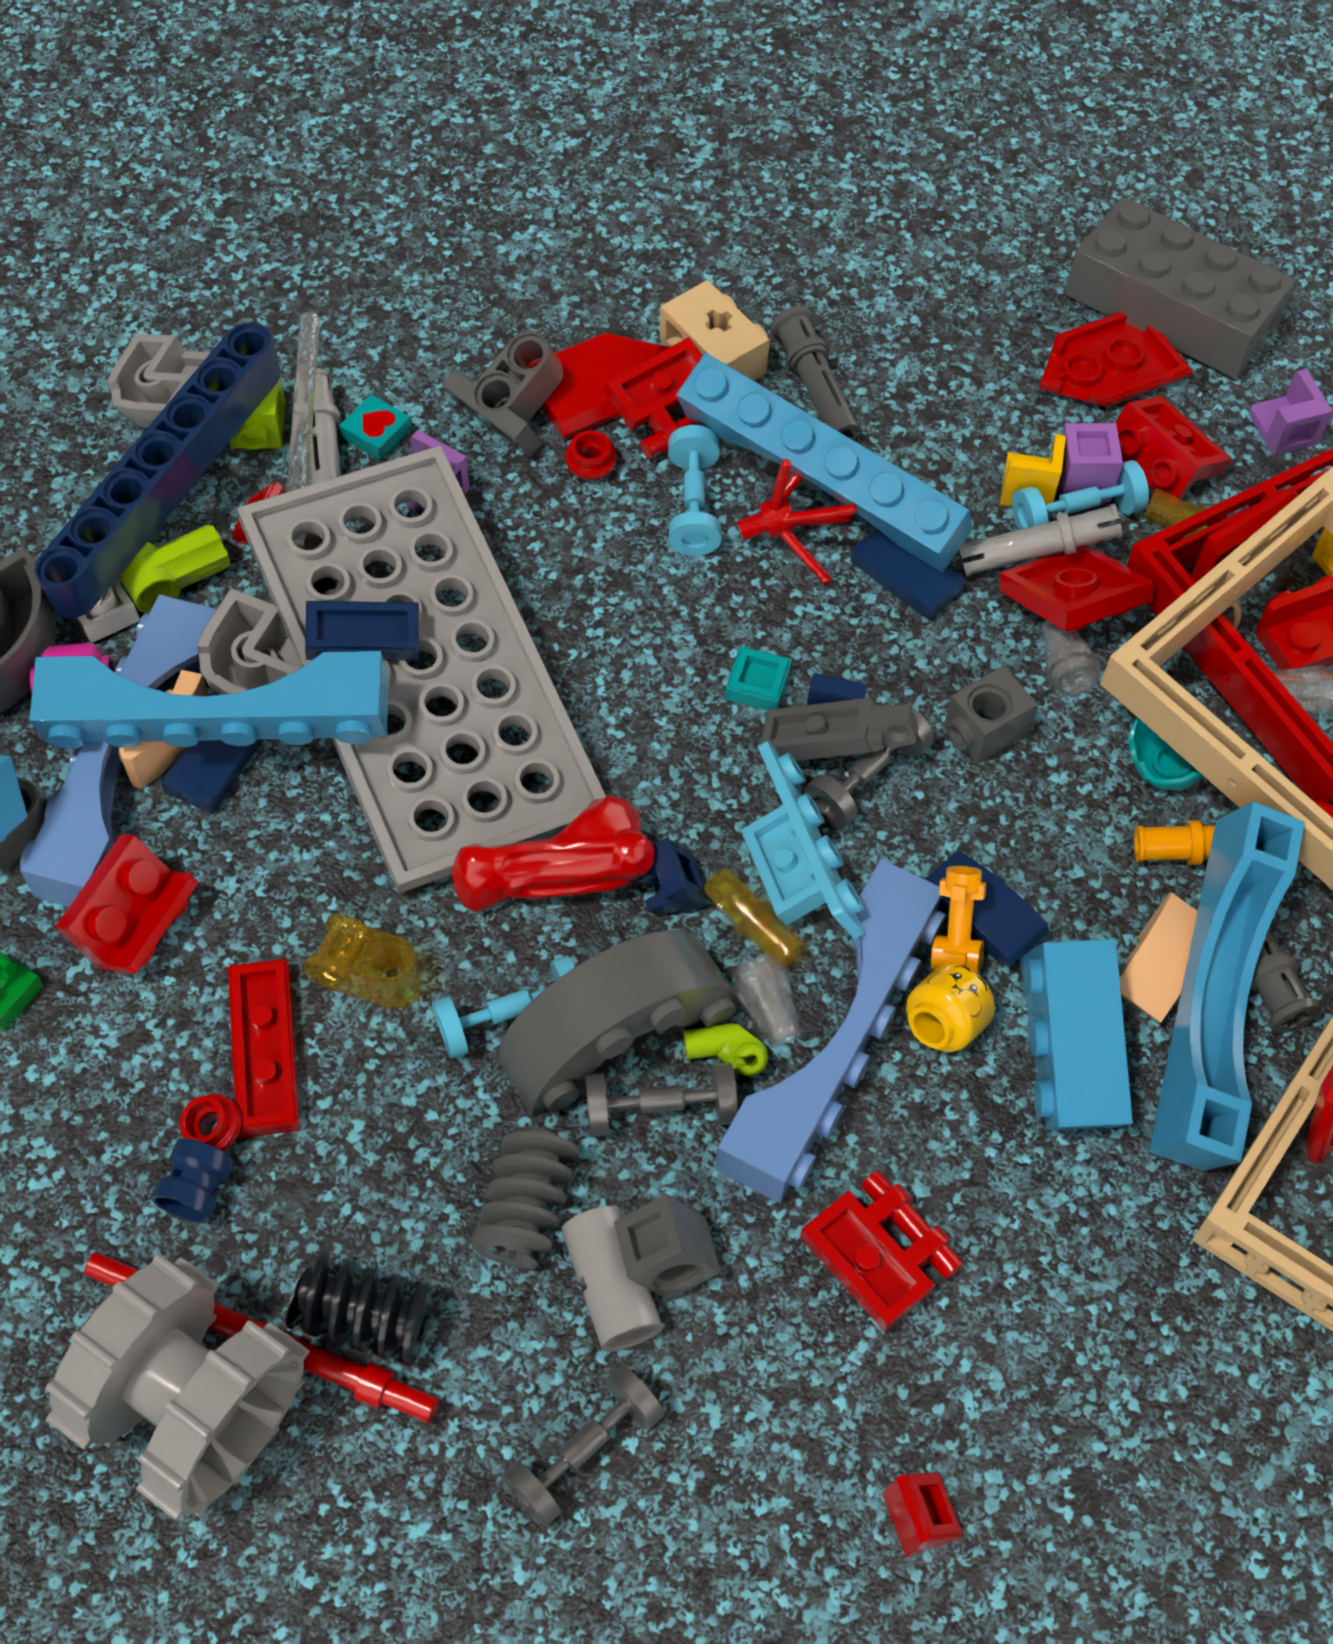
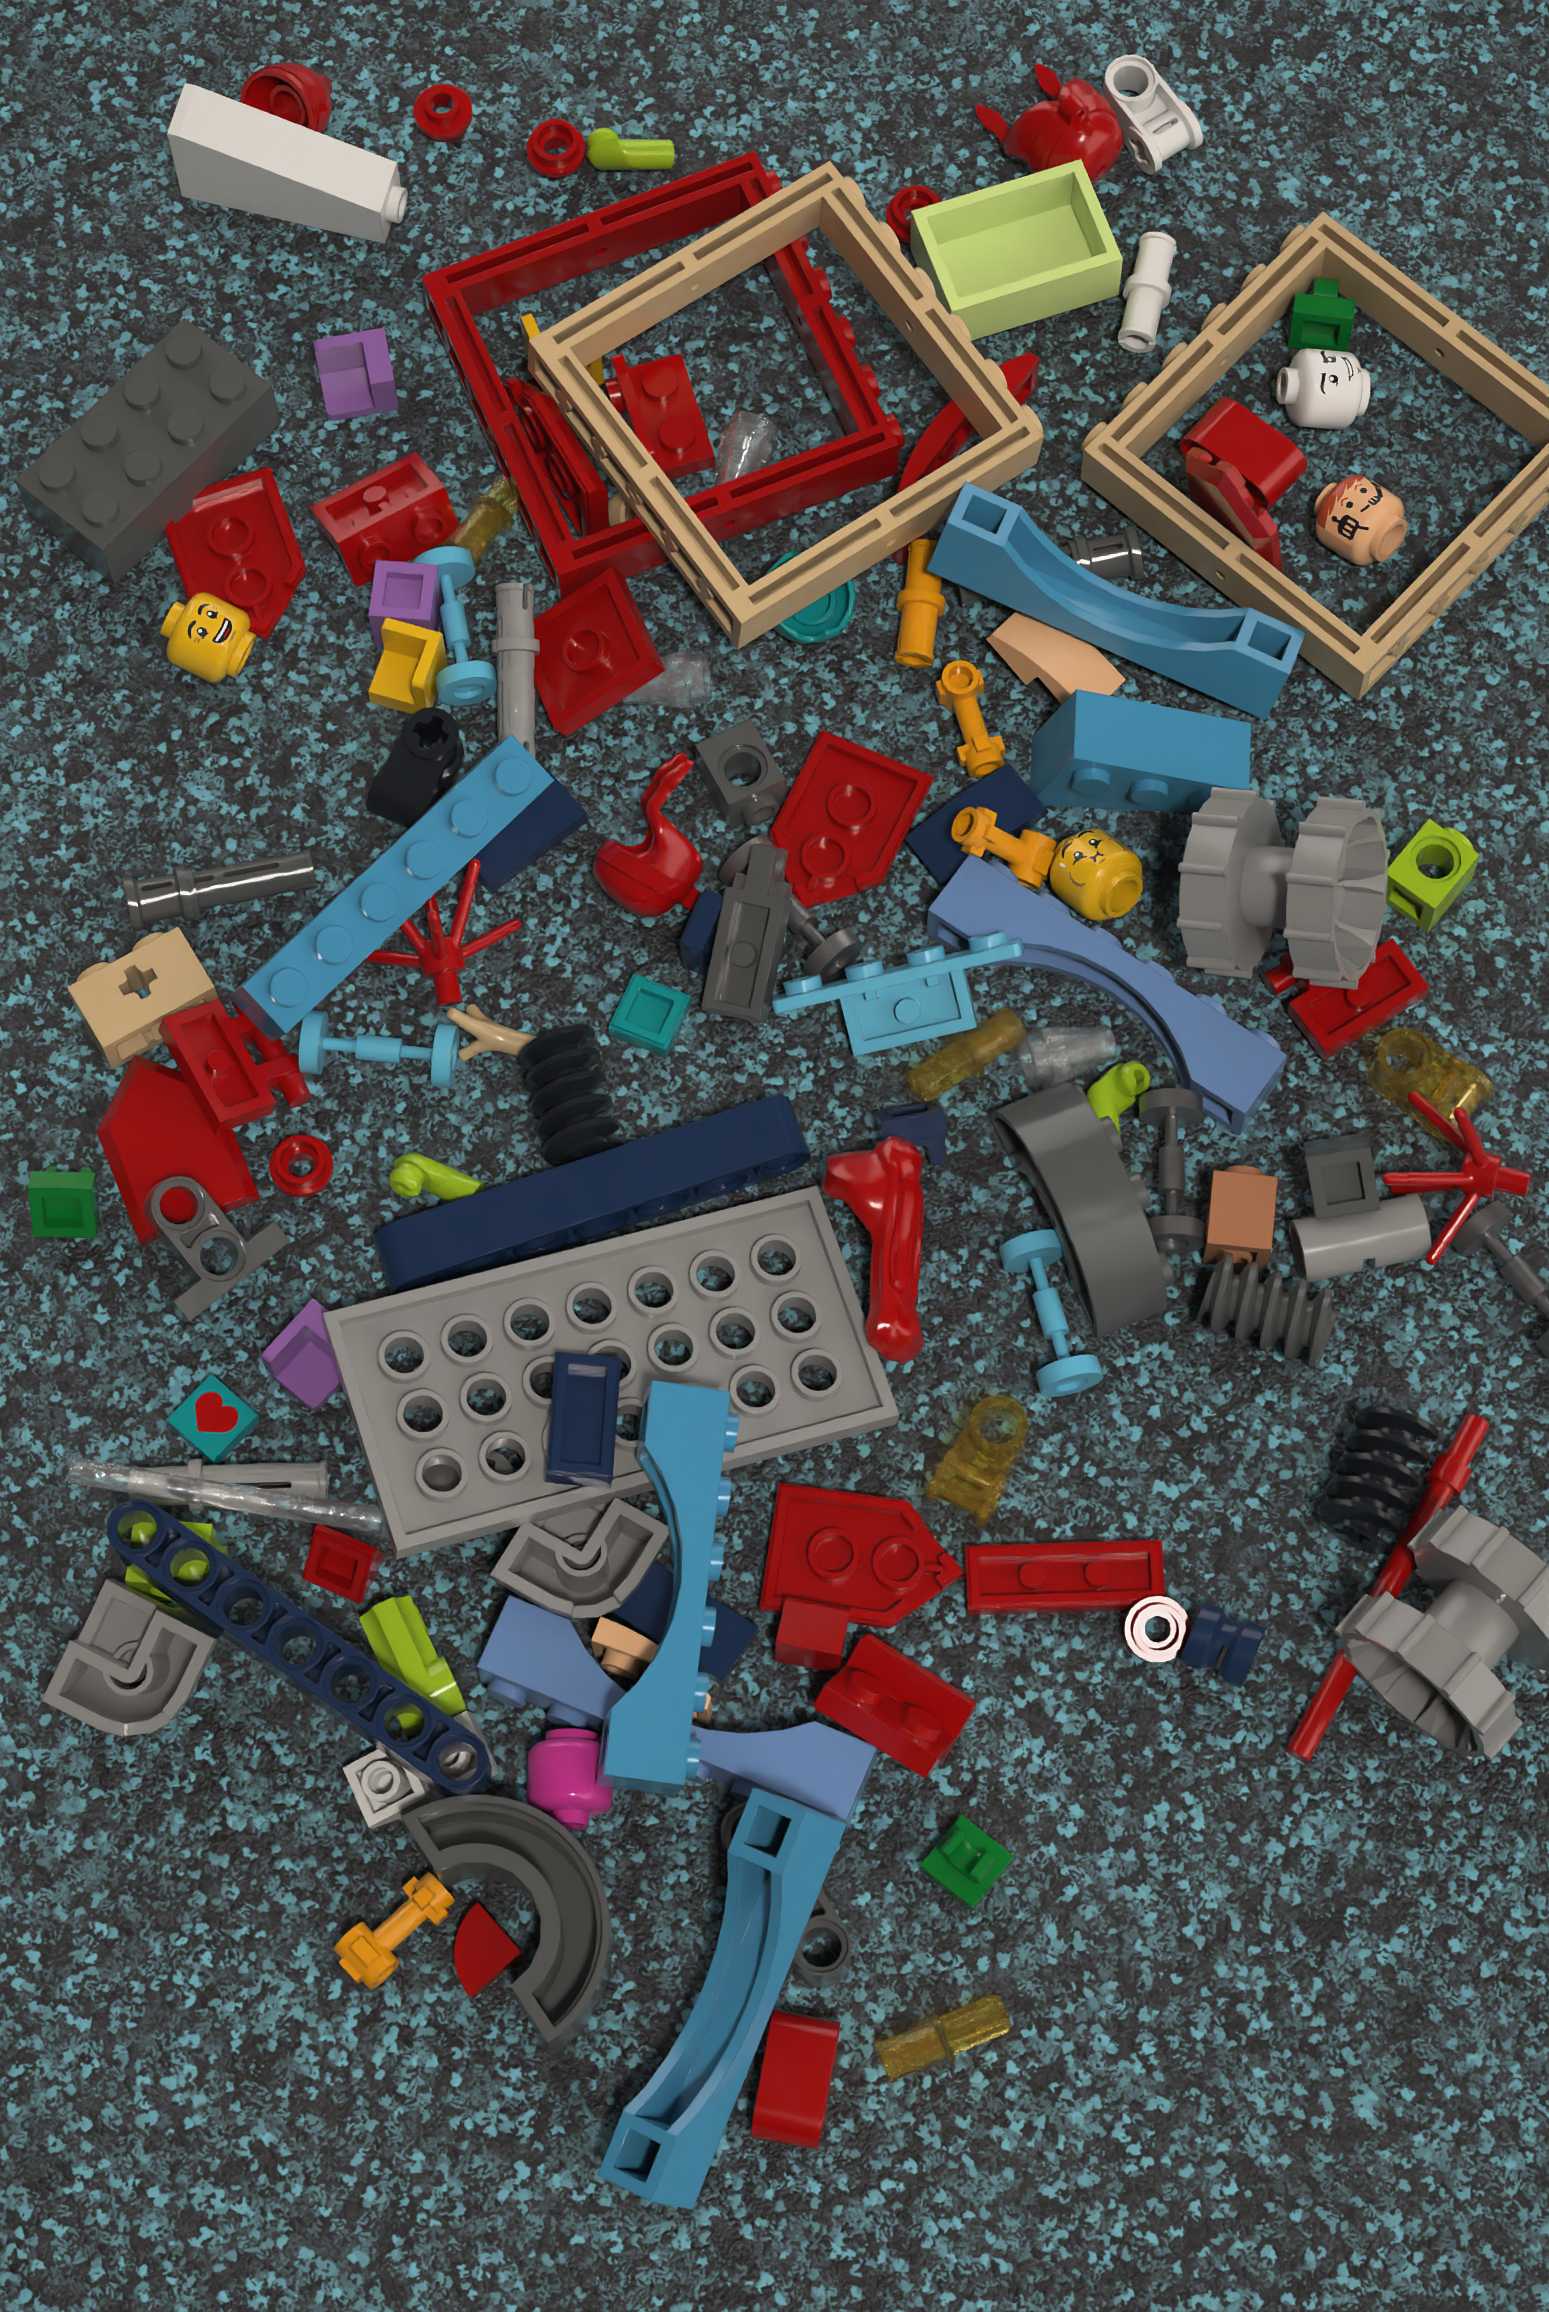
camera: 80 degrees left, 10 degrees up
(200, 841) = (812, 1634): none -> red slope
(275, 873) = (853, 1555): none -> red tile
(543, 311) = (64, 1203): none -> green tile
(587, 653) = (593, 1195): none -> dark blue beam
(591, 545) = (419, 1172): none -> lime arm
(620, 1163) = (1240, 1216): none -> nougat brick
(667, 615) = (565, 1095): none -> black piece
(680, 1373) = (1479, 1174): none -> red plant
(721, 568) = (489, 1034): none -> tan bar
(780, 1343) = (1437, 1078): none -> clear yellow piece
(880, 653) = (661, 868): none -> red hair
(947, 1148) = (1246, 883): none -> light grey piece
(954, 480) = (415, 776): none -> black piece
(967, 805) = (846, 819): none -> red tile
(1010, 1291) = (1424, 898): none -> lime brick
(1028, 343) = (208, 637): none -> yellow head
(1112, 887) = (958, 695): none -> light orange bar

